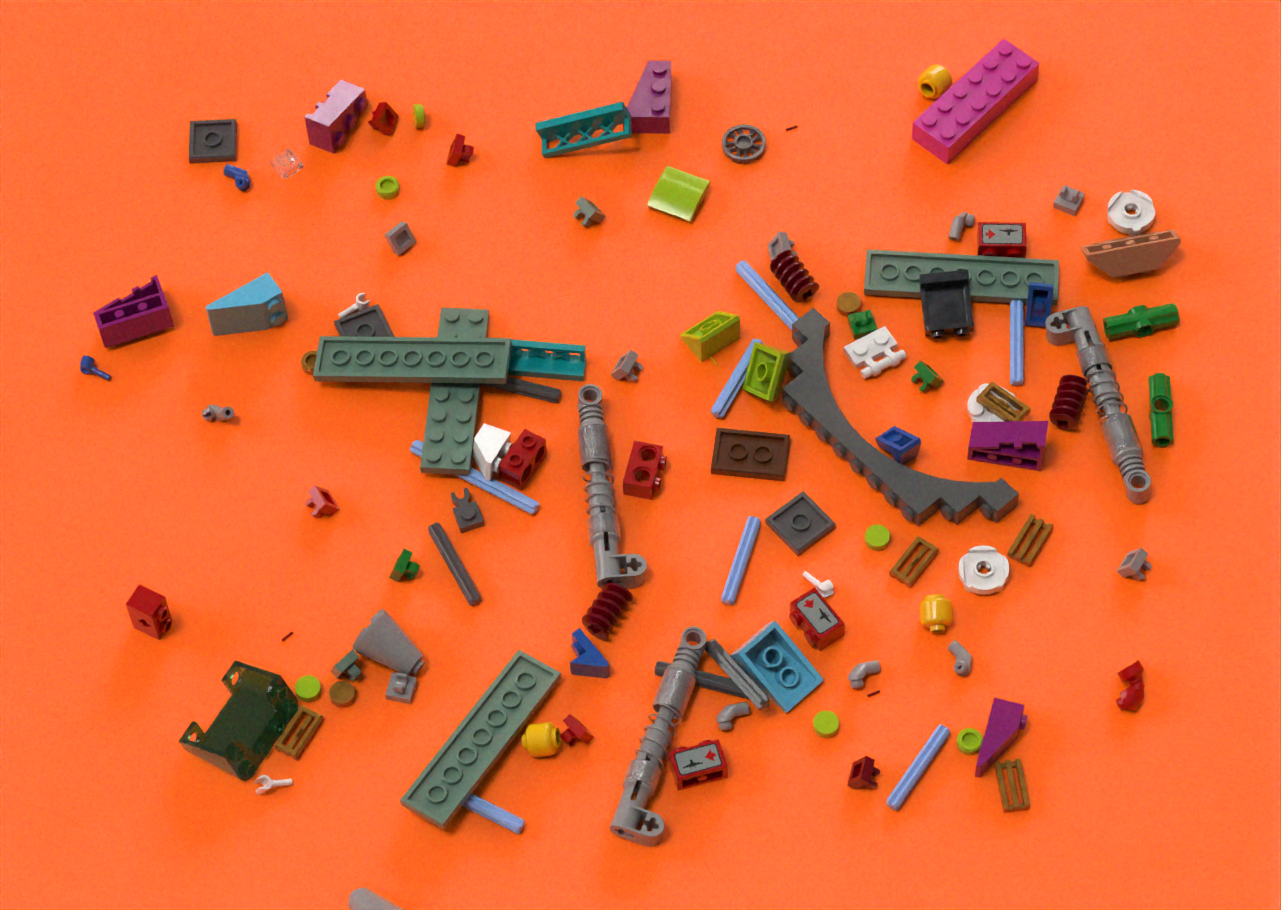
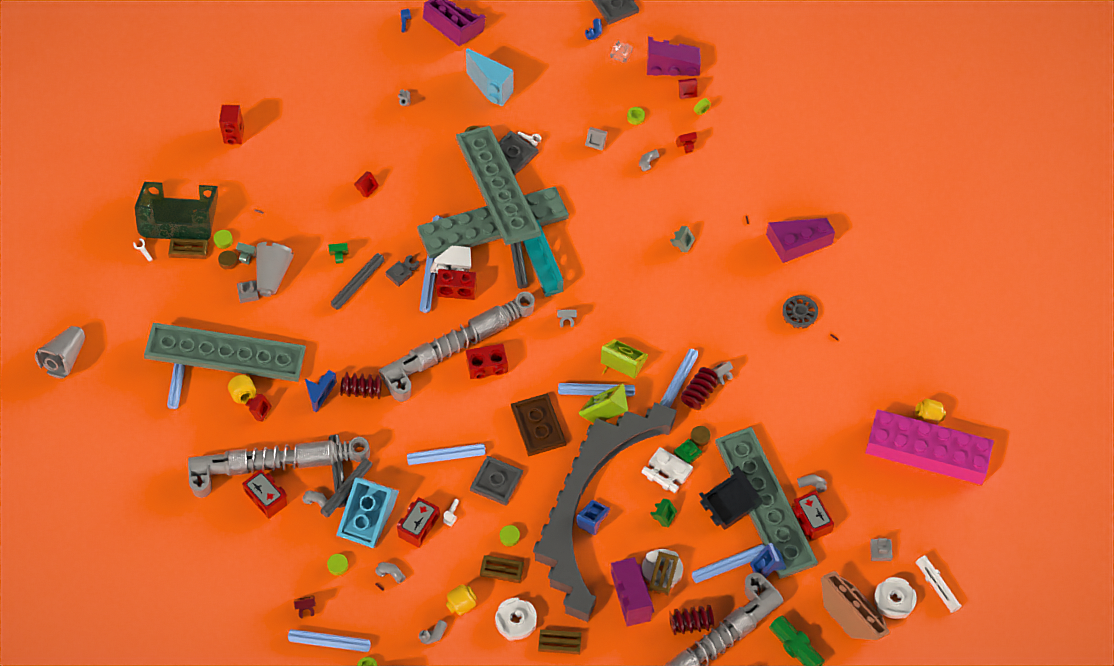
camera: 60 degrees right, 0 degrees up
(458, 203) = (646, 158): none -> light grey arm
(584, 124) = (749, 202): teal fence -> none
(678, 194) = (731, 288): lime slope -> none
(1106, 168) = (933, 576): none -> white pin

